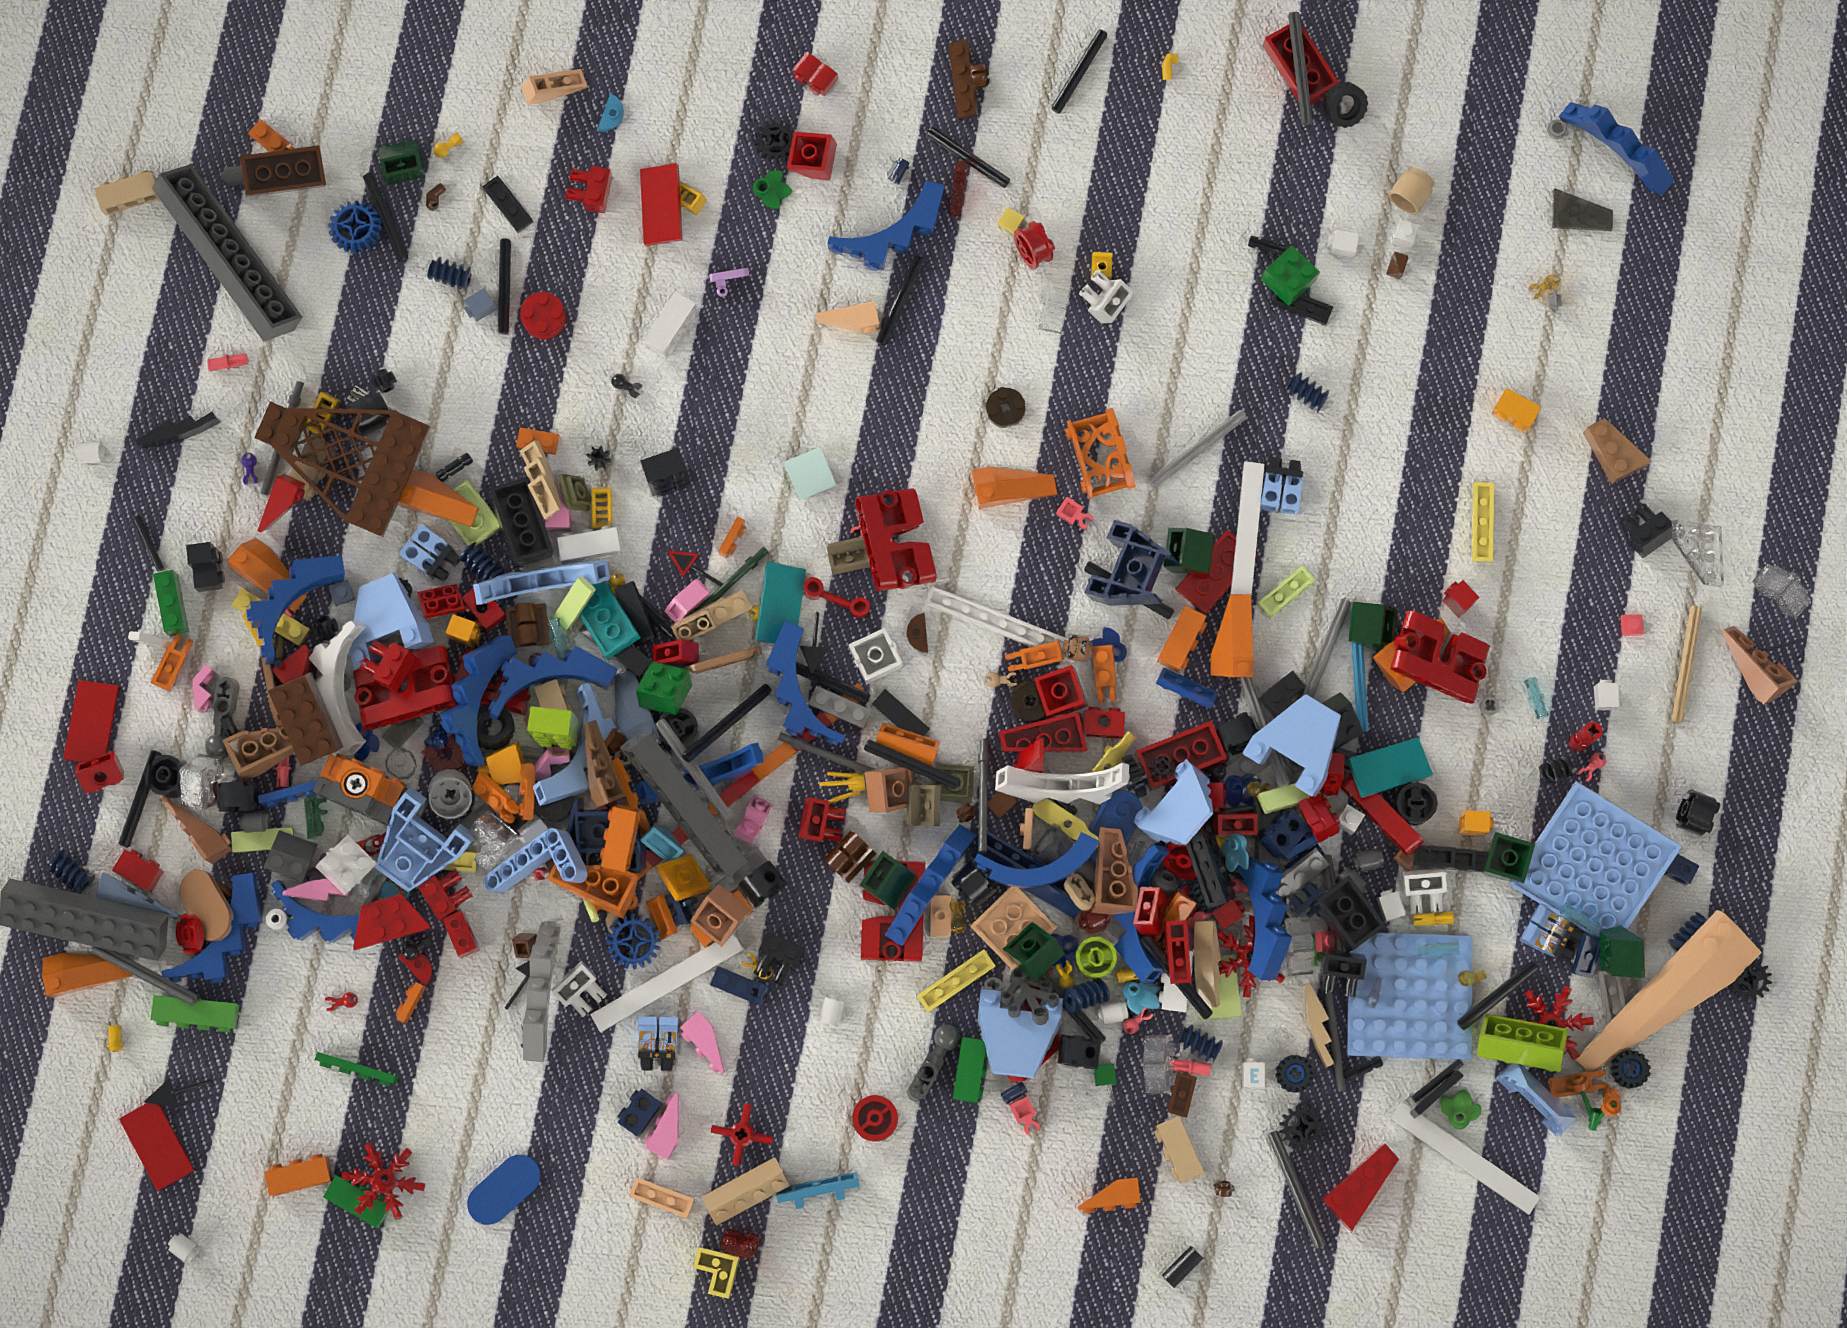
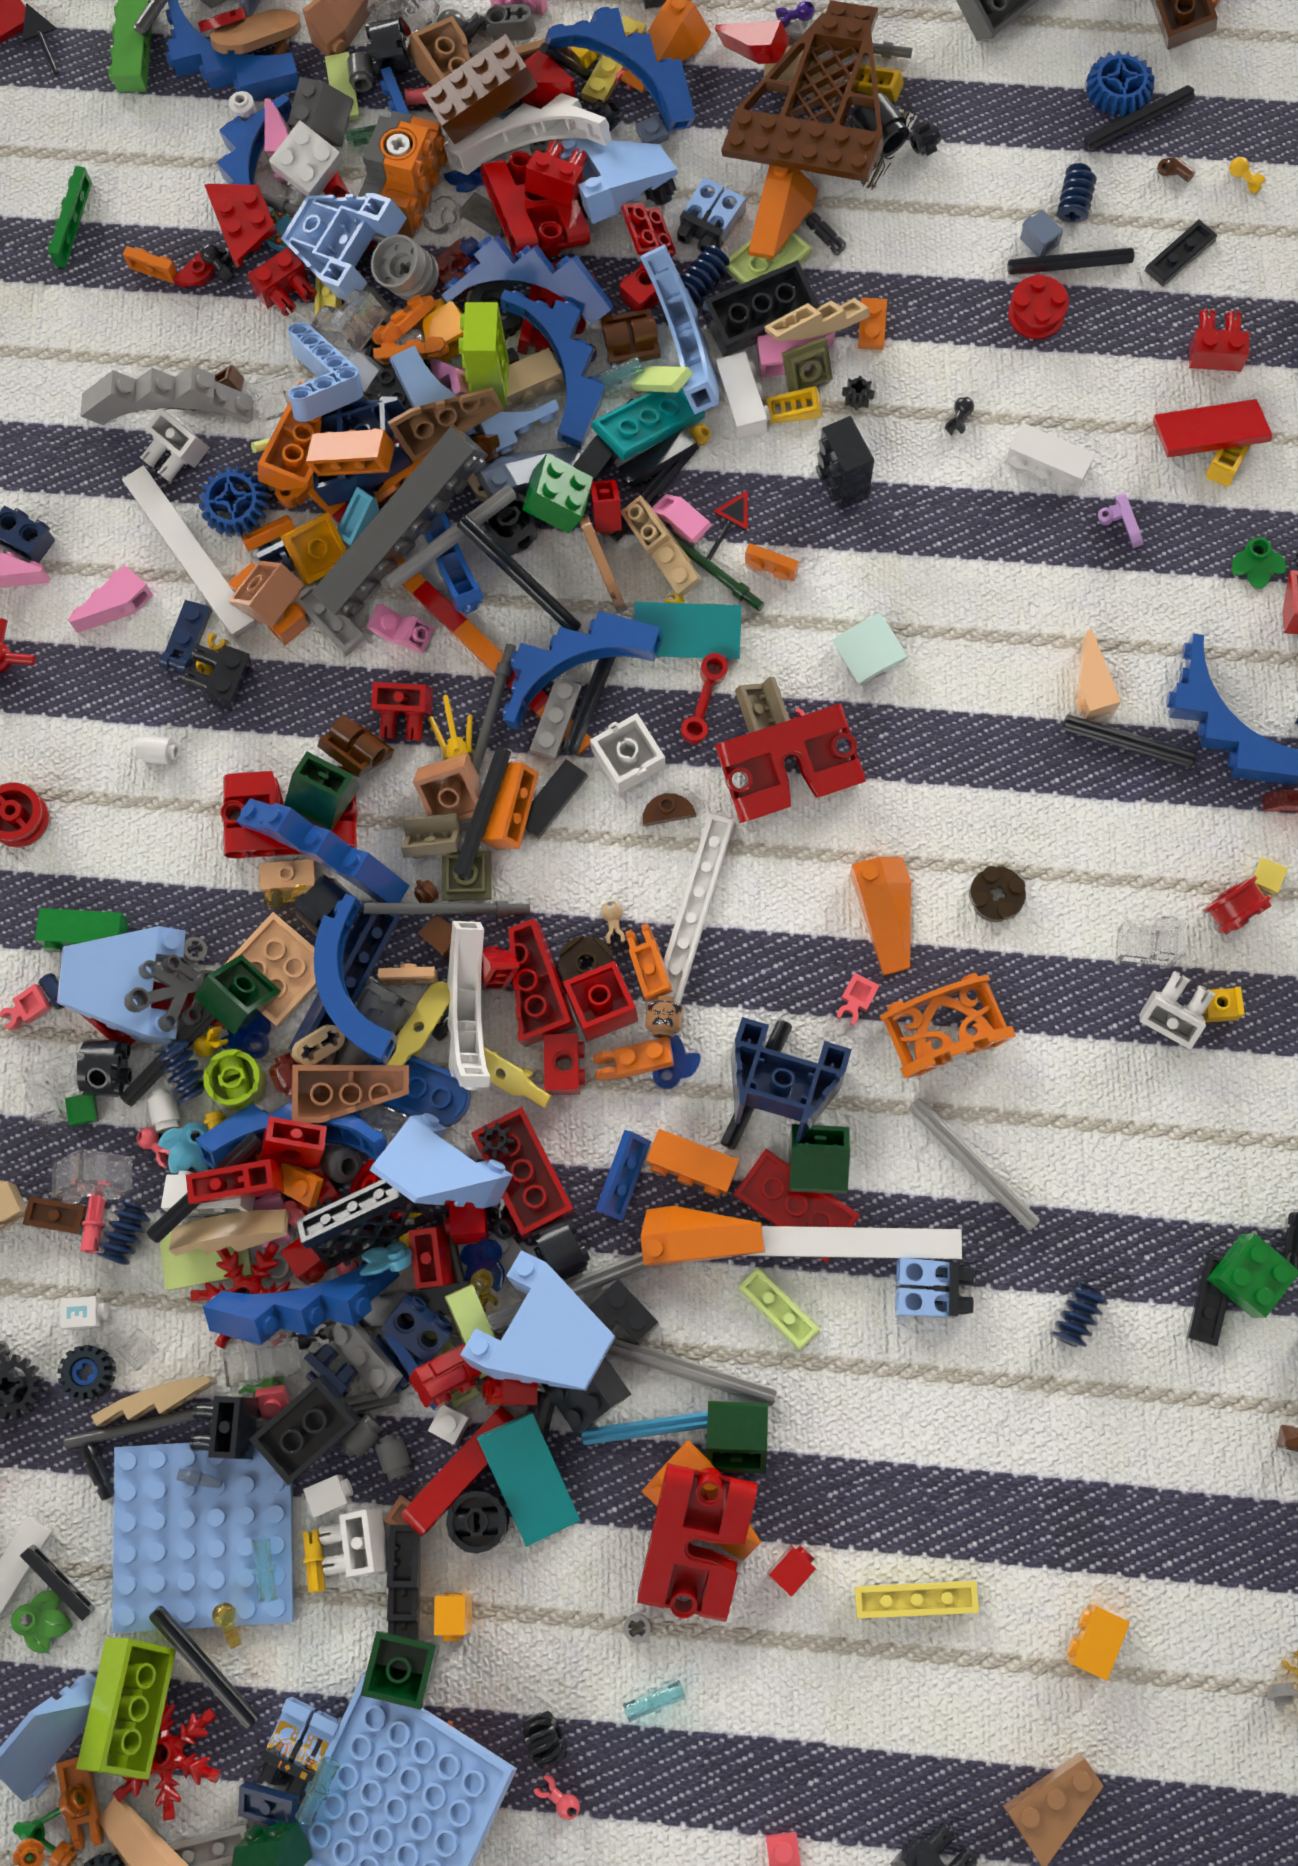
camera: 90 degrees right, 5 degrees down
(347, 1000) = (152, 198): red arm -> none
(401, 162) = (1213, 122): dark green slope -> none
(461, 934) = (235, 307): red brick -> none
(463, 631) = (612, 259): light orange brick -> none
(655, 1048) = (110, 545): hips -> none
(762, 883) = (326, 646): black brick -> none
(813, 654) = (625, 678): black piece -> none
(946, 1039) = (123, 897): dark grey beam -> none
(955, 981) = (200, 902): light yellow plate -> none
(1137, 776) = (487, 1108): black gear -> none
(1437, 1080) = (82, 1583): black bar -> none
(1585, 736) = (589, 1781): red piece -> none
(1606, 695) = (667, 1815): white brick -> none

